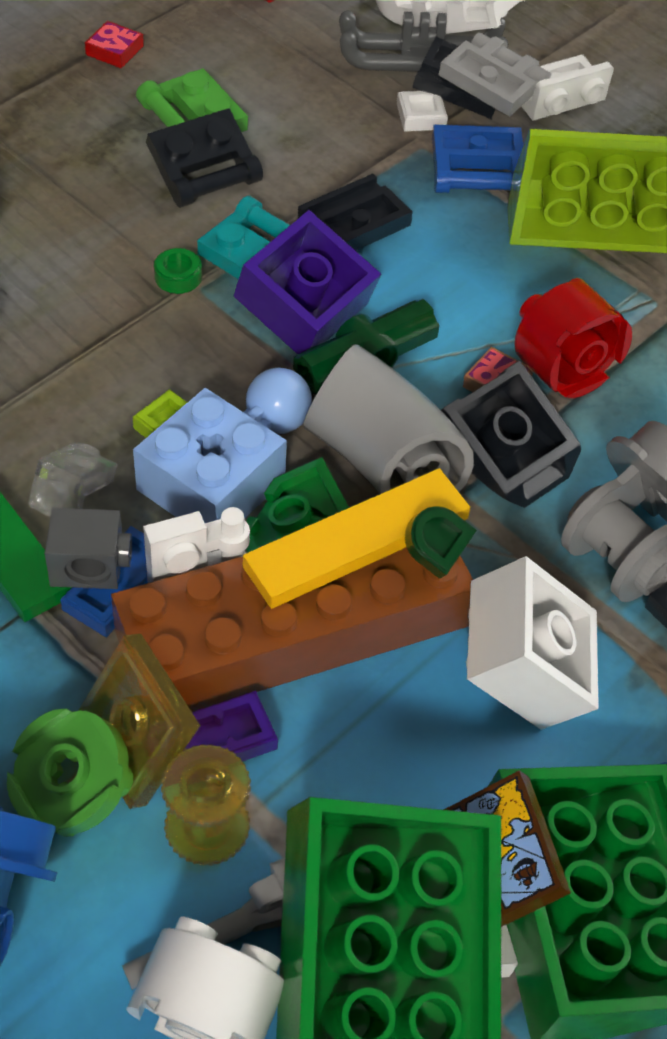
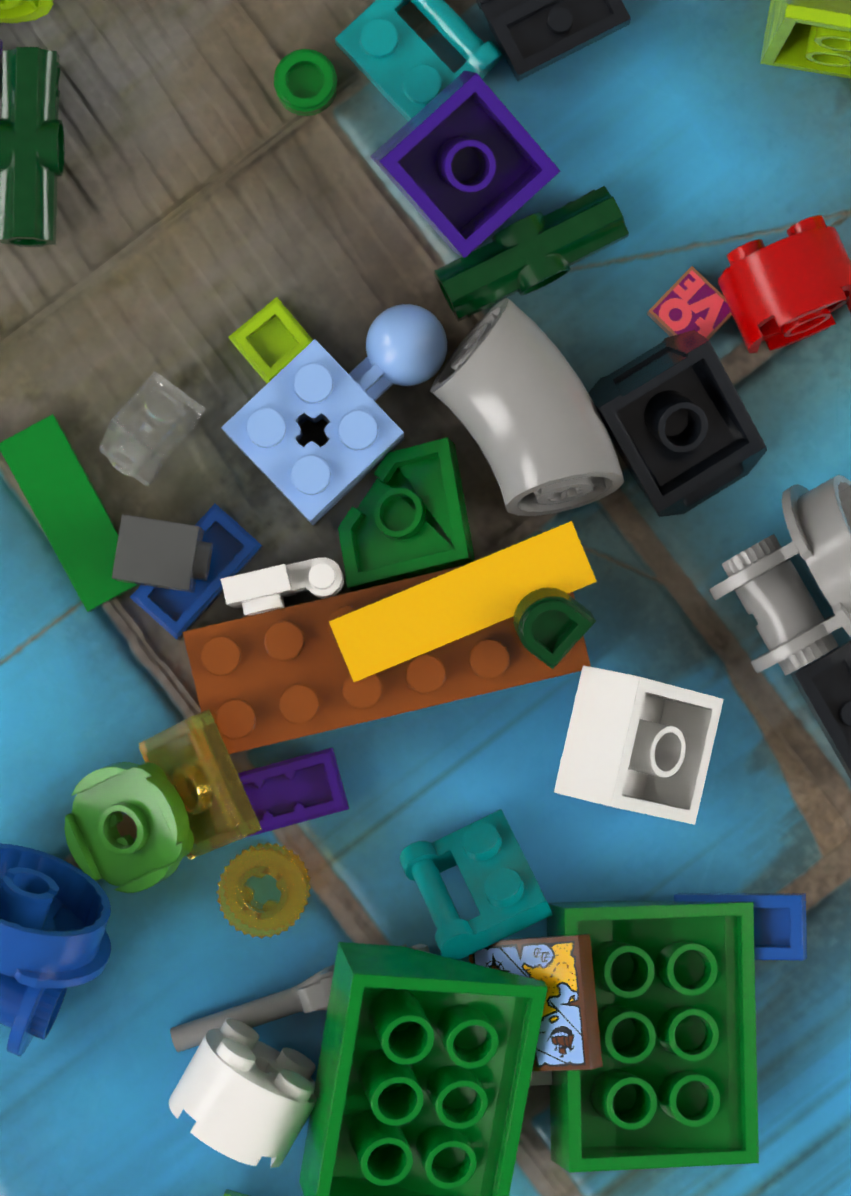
camera: 10 degrees right, 35 degrees up
(417, 771) = (495, 876): none -> teal plate

